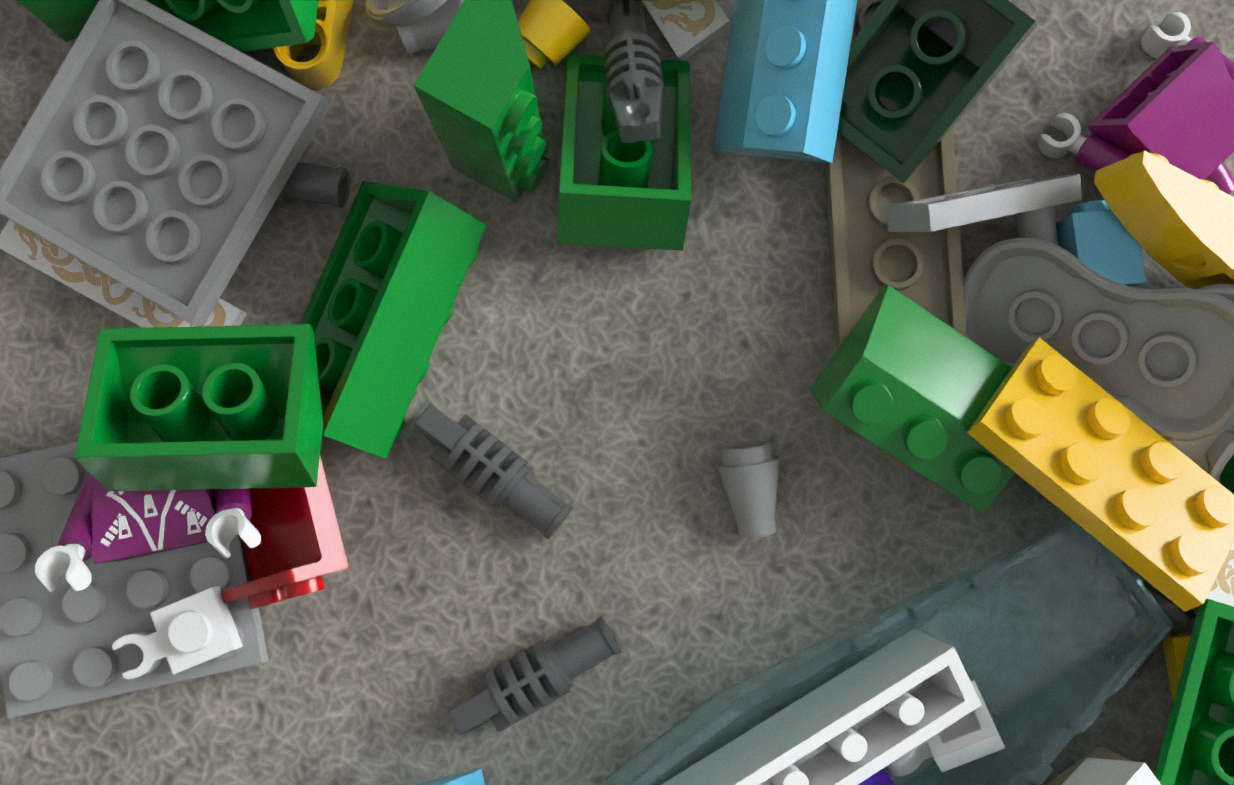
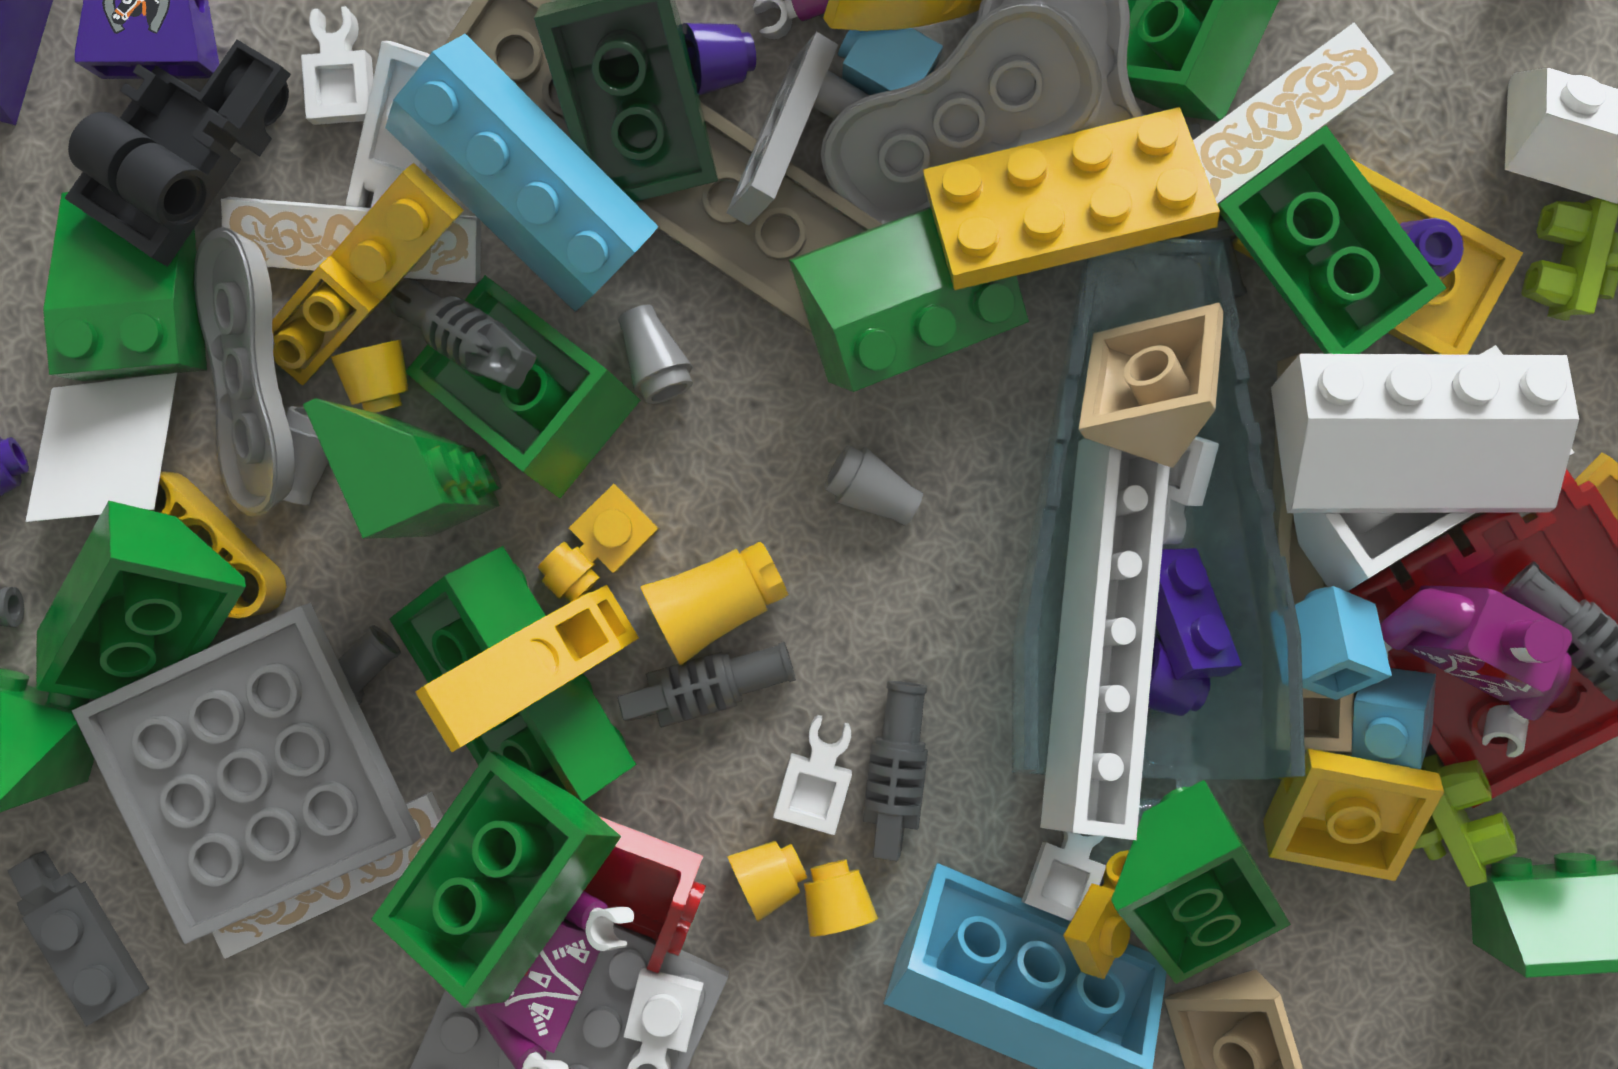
camera: 55 degrees left, 5 degrees up
(369, 635) = (768, 876): none -> yellow hat
(391, 707) = (837, 899): none -> yellow hat
(400, 306) = (526, 667): none -> yellow slope
(472, 619) = (814, 786): none -> white plate
(559, 304) = (610, 532): none -> yellow plate
(567, 424) = (714, 598): none -> yellow plant
(724, 237) = (654, 358): none -> light grey cone
(1000, 115) = (719, 55): none -> dark purple hat
(1018, 657) = (1153, 383): none -> tan slope

